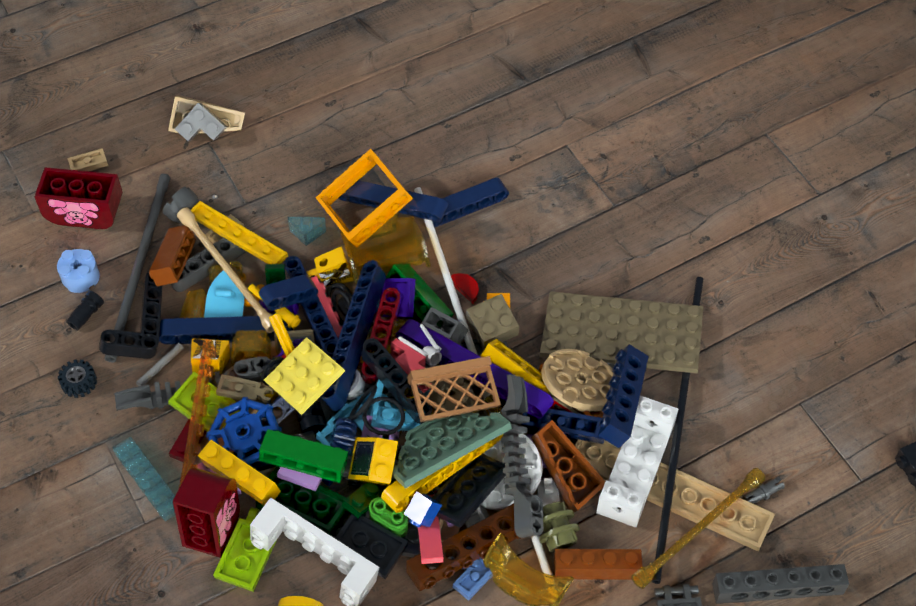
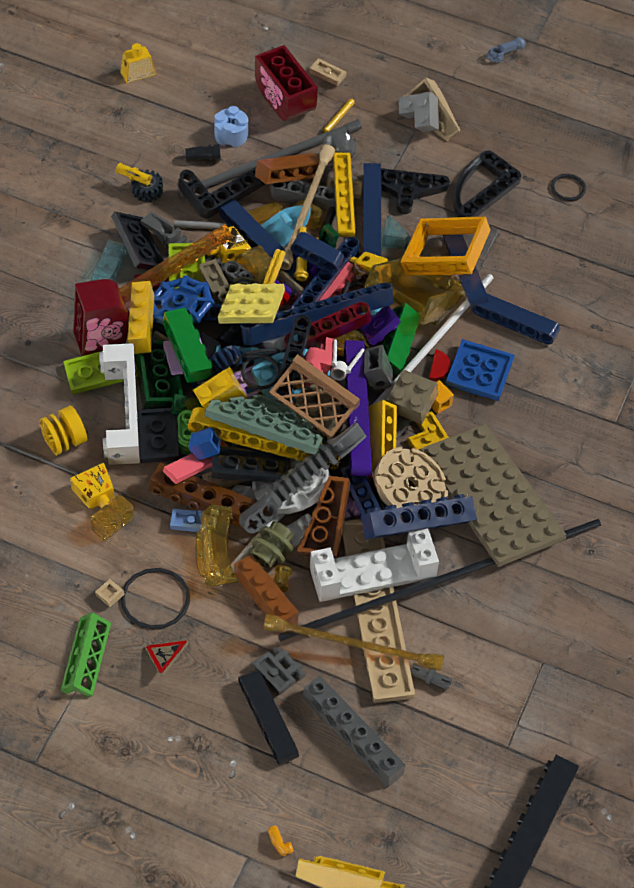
camera: 50 degrees right, 0 degrees up
(47, 385) = (143, 177): none -> yellow pin
(138, 425) = (137, 241): none -> black plate
(141, 185) = (339, 115): none -> yellow bar
(187, 38) = (497, 53): none -> sand blue piece
(247, 267) = (329, 217): none -> black piece
(256, 192) = (415, 187): none -> black beam
(270, 227) = (372, 208): none -> dark blue beam
(314, 115) = (490, 161): none -> black beam
(364, 94) = (568, 198): none -> black piece
(494, 260) = (480, 370): none -> blue plate
(530, 338) = (430, 433): none -> yellow tile
(588, 541) = (282, 576): none -> clear yellow bush

